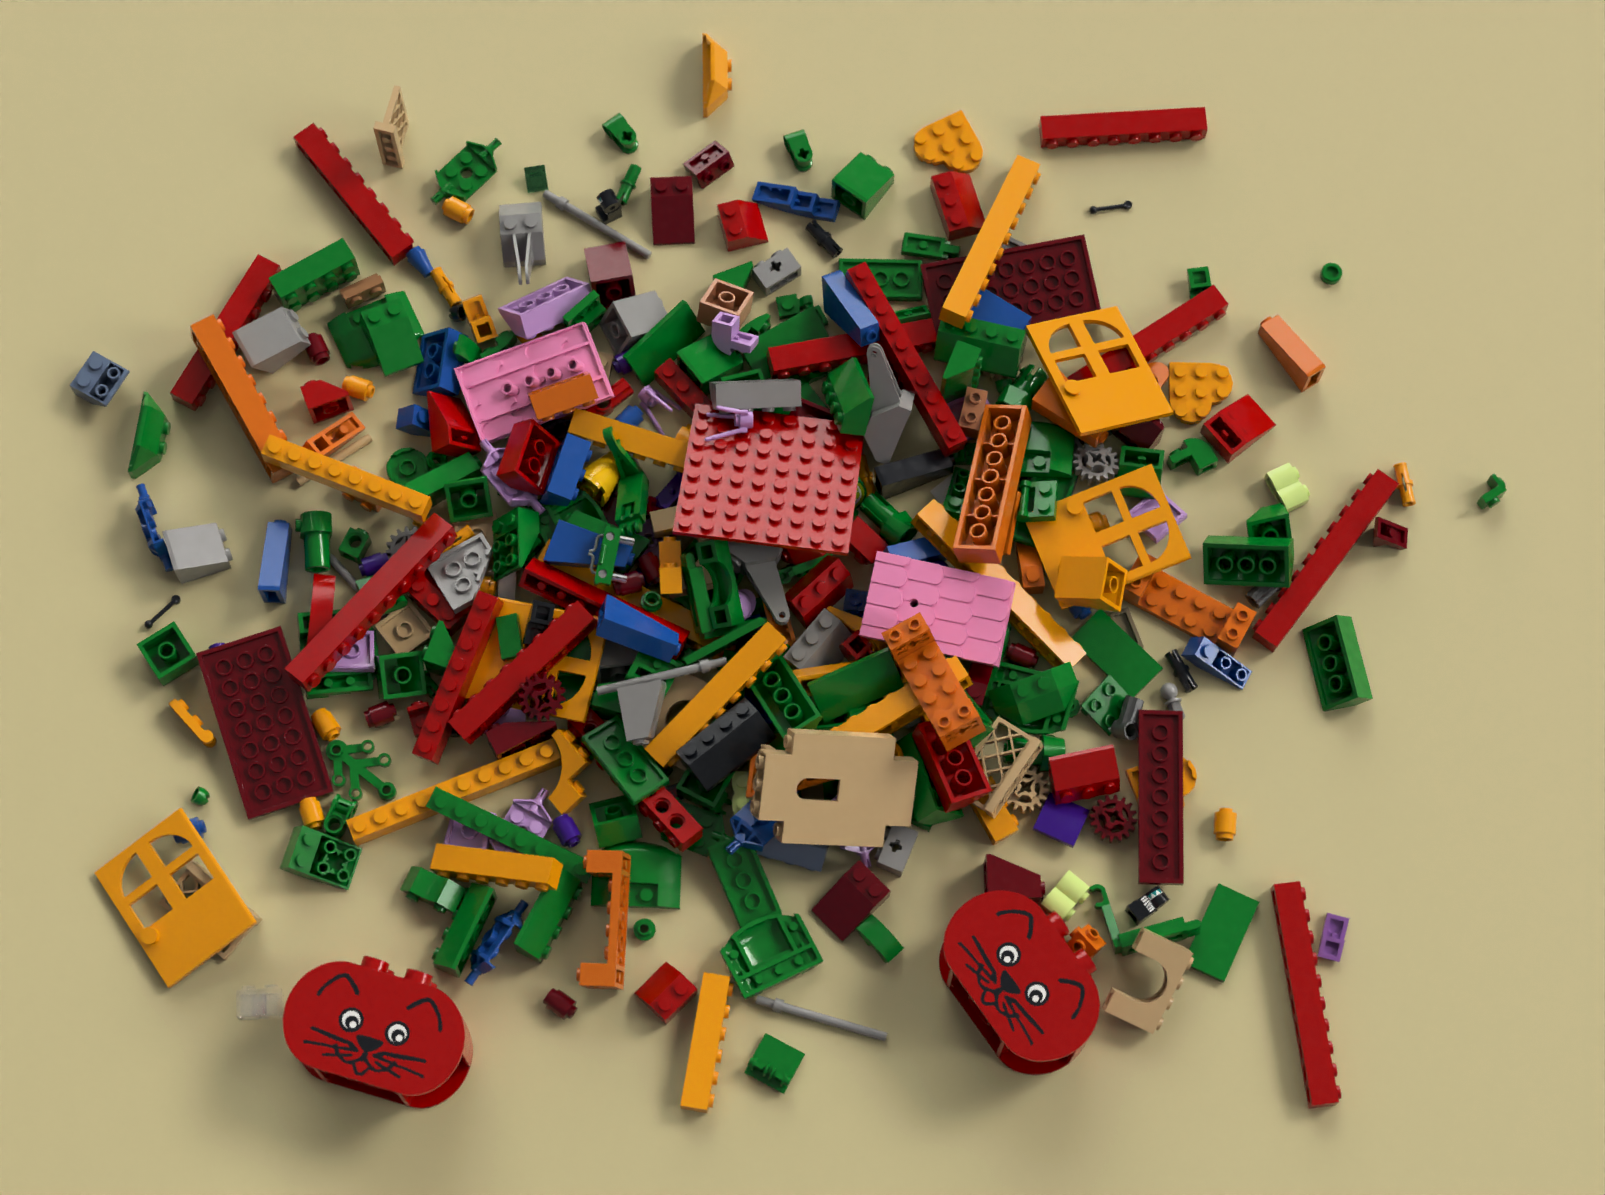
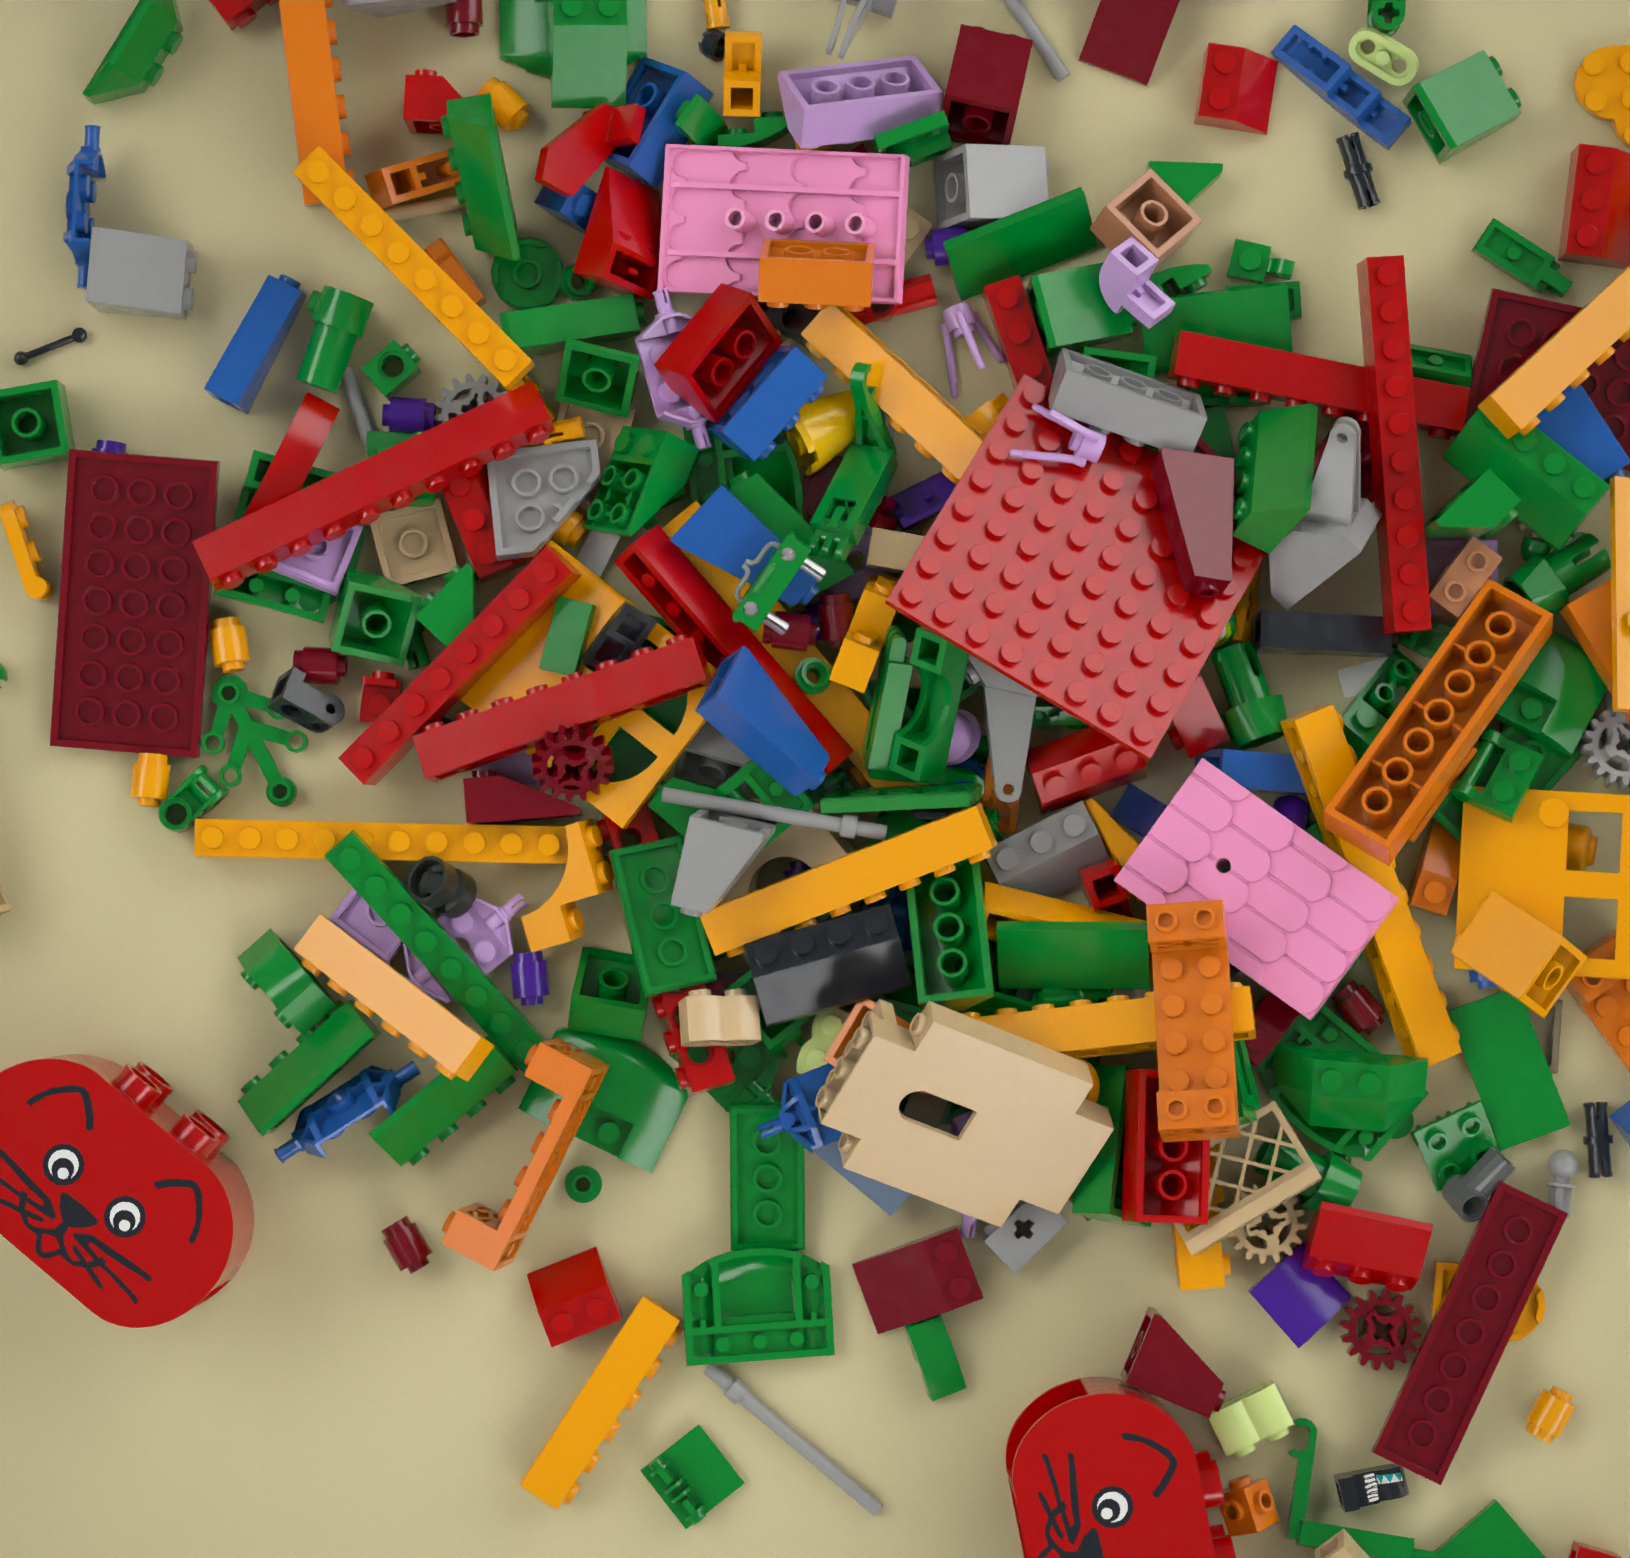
camera: 25 degrees right, 15 degrees up
(320, 857) = (136, 855): green slope -> none
(363, 421) = (482, 175): none -> green slope
(381, 736) = (304, 703): none -> black leg
(412, 383) = (586, 144): none -> red piece
(497, 799) = (441, 887): none -> pearl dark grey wheel
(630, 415) = (913, 344): blue brick -> none
(680, 798) = (719, 1019): none -> tan brick
(770, 280) = (1239, 208): light grey brick -> none
(811, 177) = (1382, 58): none -> yellowish green plate
(818, 430) = (1198, 516): none -> slope
(848, 309) = (1341, 321): blue slope -> none
(897, 278) = (1439, 286): green tile -> none

